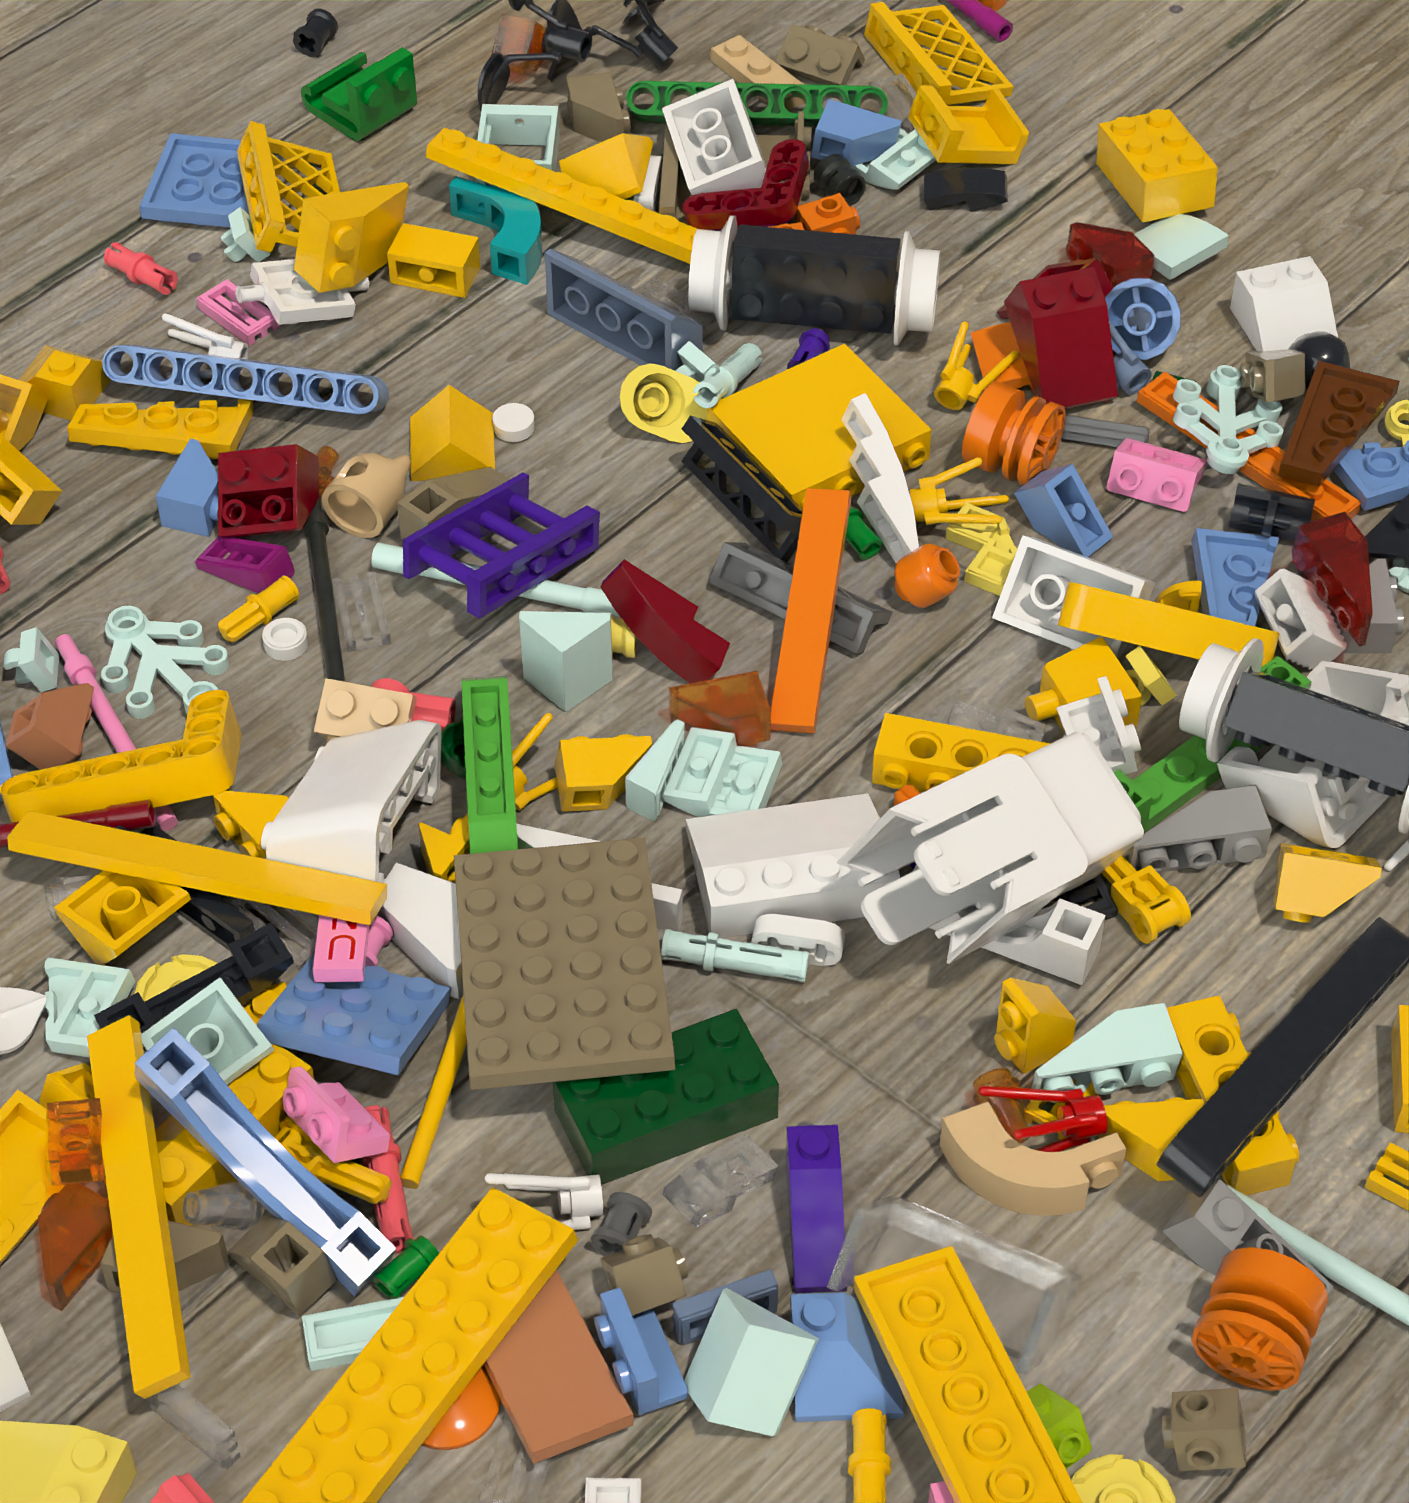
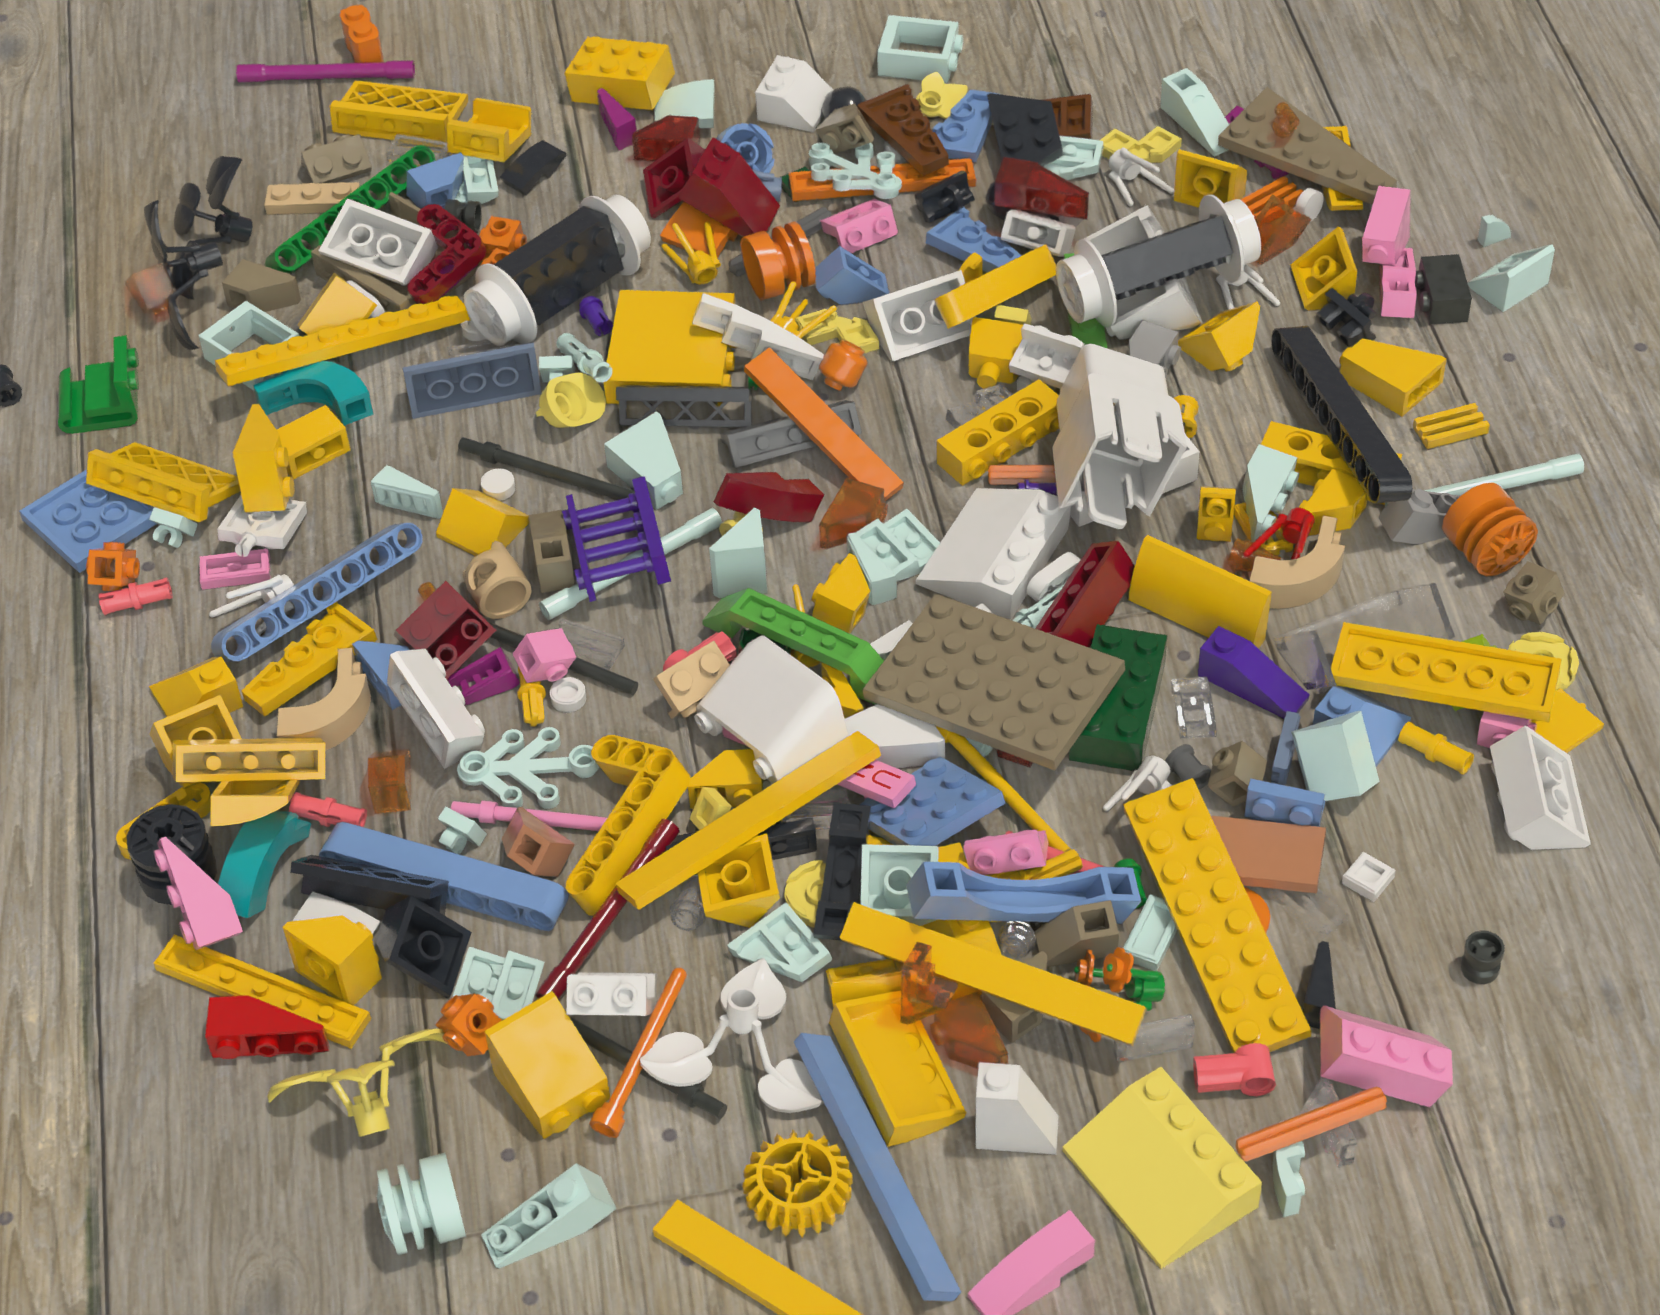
camera: 50 degrees left, 0 degrees up
(60, 571) = (390, 780): none -> clear orange slope
(105, 486) = (336, 714): none -> tan arch
(151, 227) = (112, 566): none -> orange brick
(151, 538) = (434, 705): none -> white slope
(206, 832) = (708, 807): none -> light yellow tile
(262, 1359) = (1117, 969): none -> plant
(295, 584) = (544, 655): none -> bright pink brick
(430, 356) = (405, 493): none -> light aqua slope
(550, 396) = (493, 453): none -> pearl dark grey bar
(646, 508) = (647, 453): none -> light aqua slope
(773, 982) = (1089, 593): none -> dark red brick
(875, 1088) = (1198, 593): none -> yellow slope
(1094, 199) = (617, 120): none -> magenta slope

